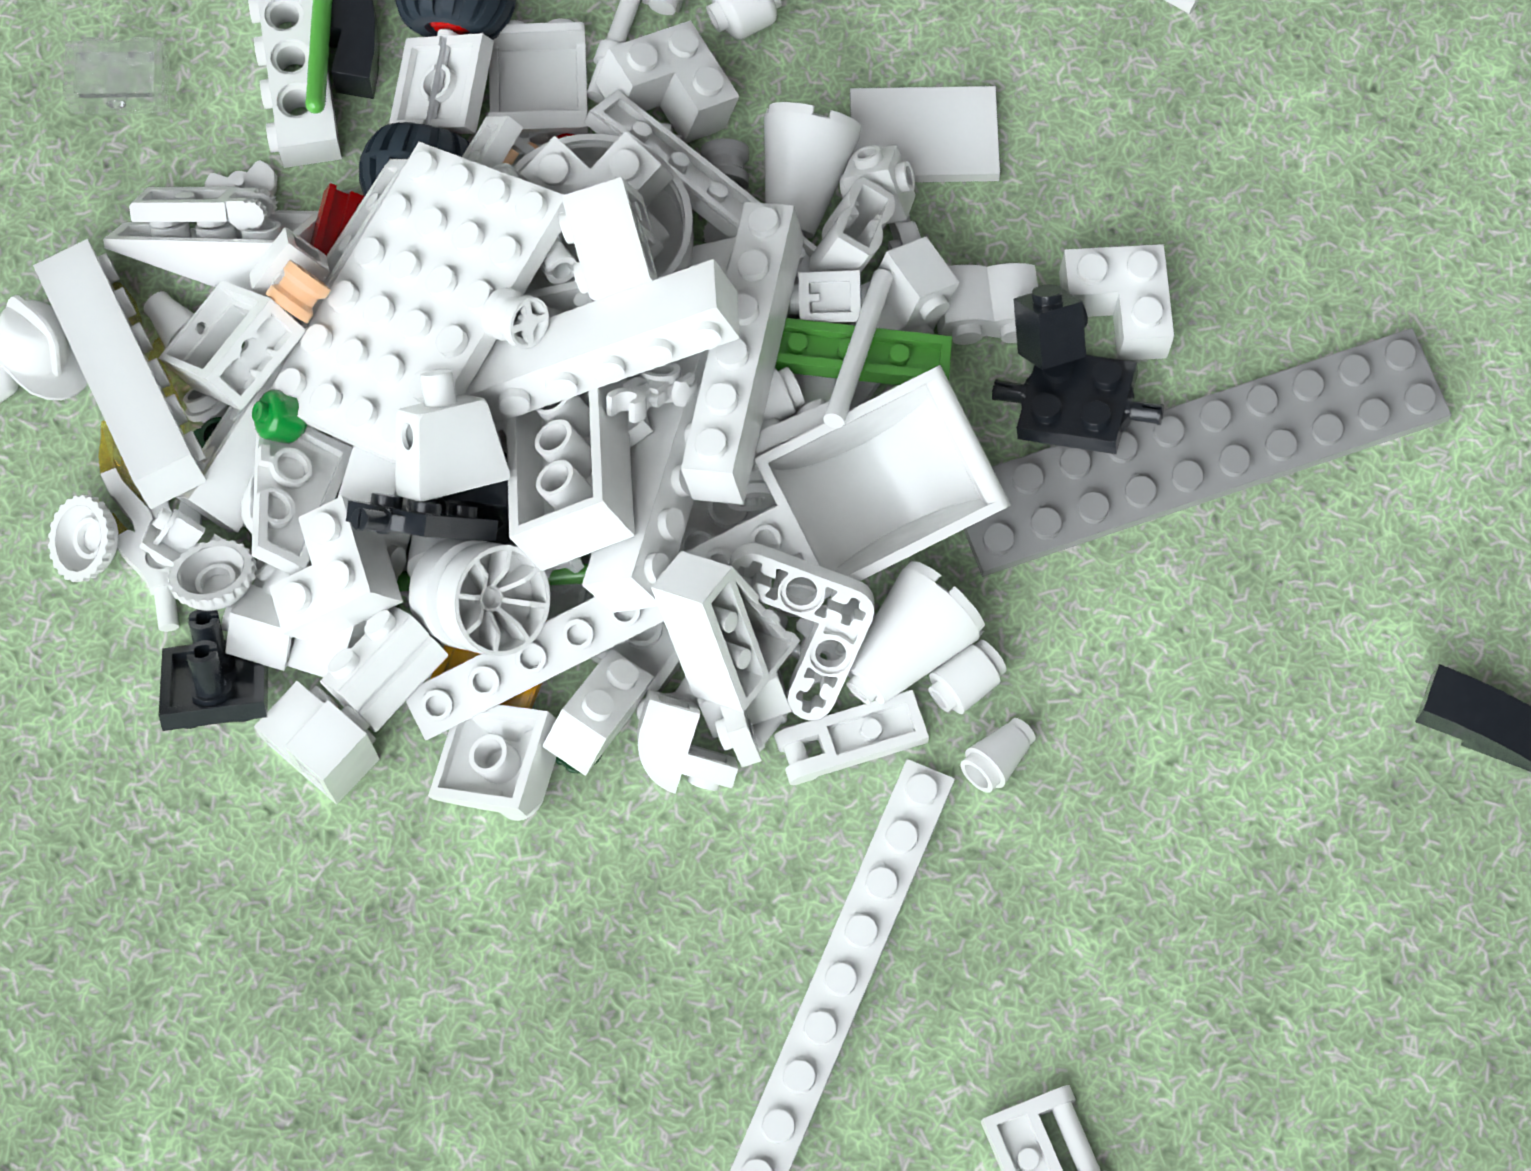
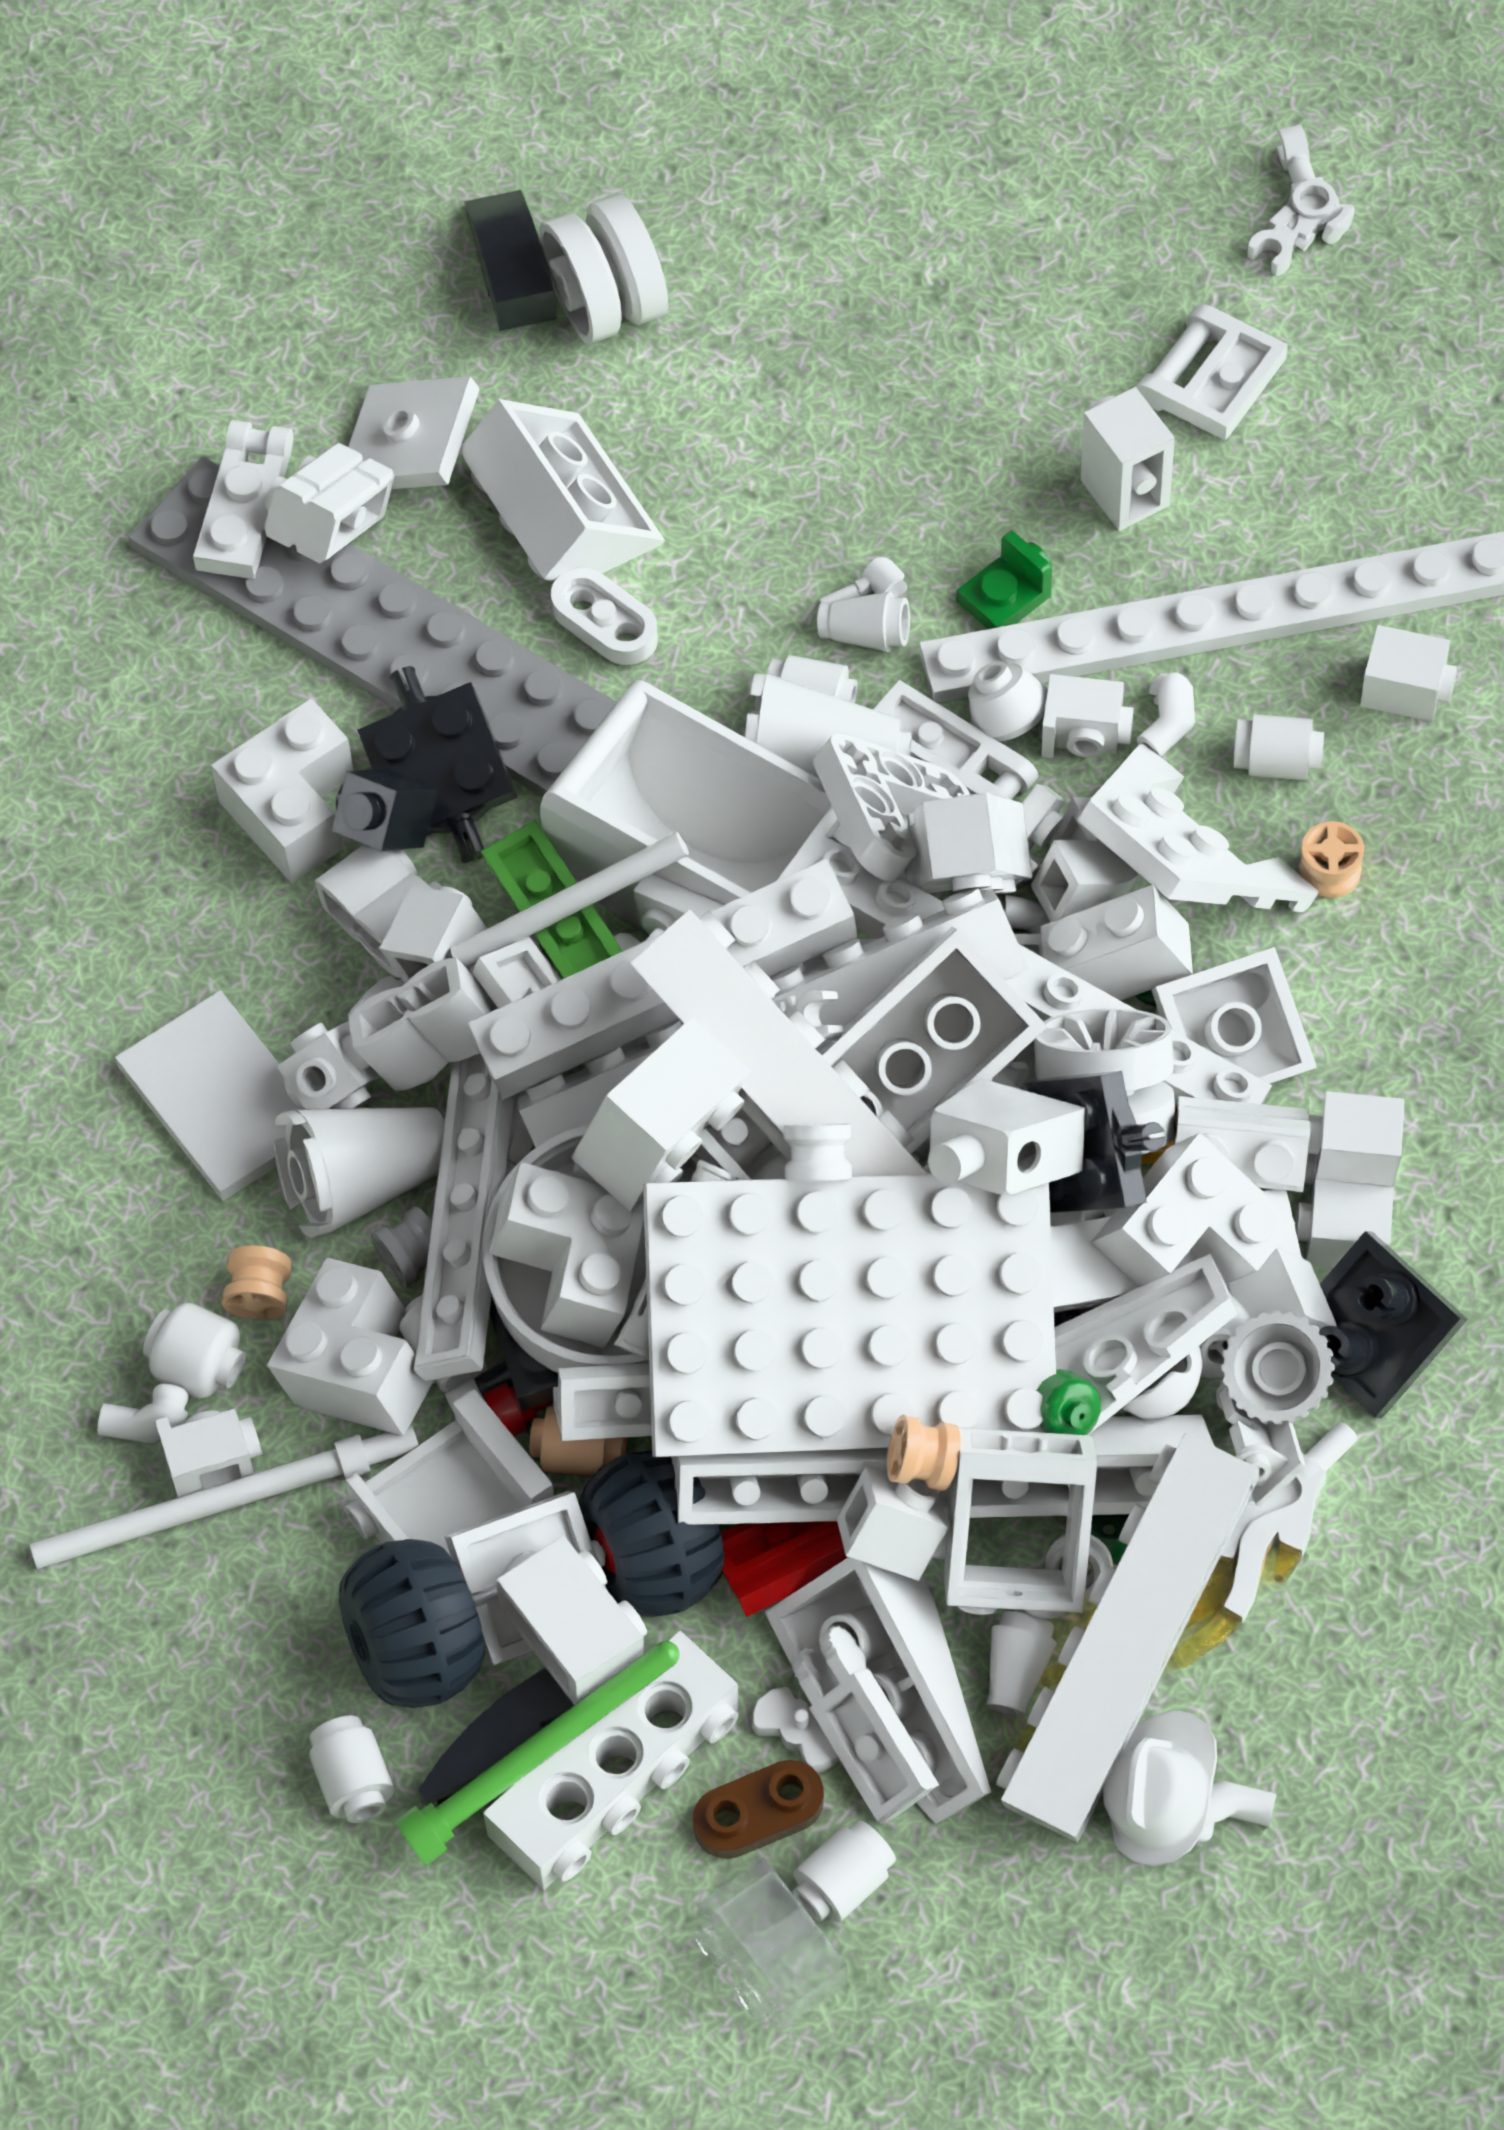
camera: 120 degrees left, 10 degrees down
(82, 538) = (1331, 1566): white hat -> none
(128, 143) = (843, 1872): none -> white brick
(209, 129) = (761, 1811): none -> reddish brown plate
(379, 68) = (571, 1618): none -> white piece
(568, 917) = (1336, 845): none -> light nougat wheel
(648, 792) = (1183, 860): none -> white wing
(680, 1088) = (1407, 673): none -> white brick
(689, 955) = (1278, 747): none -> white brick
(766, 67) = (256, 1282): none -> light nougat wheel
(775, 912) = (1175, 711): none -> white arm
(808, 840) = (1085, 716): none -> white brick
(857, 795) = (1006, 700): none -> white cone
(959, 872) = (1009, 585): none -> green bracket
(996, 1010) = (1127, 458): none -> white brick
(1028, 794) = (879, 576): none -> white hand
(1125, 586) = (609, 617): none -> white plate
(1253, 624) = (557, 490): none -> white slope
(1341, 451) = (327, 502): none -> white brick
(1372, 552) = (415, 428): none -> white plate
(1384, 404) = (236, 515): none -> white plate
(1423, 760) = (604, 268): none -> white wheel

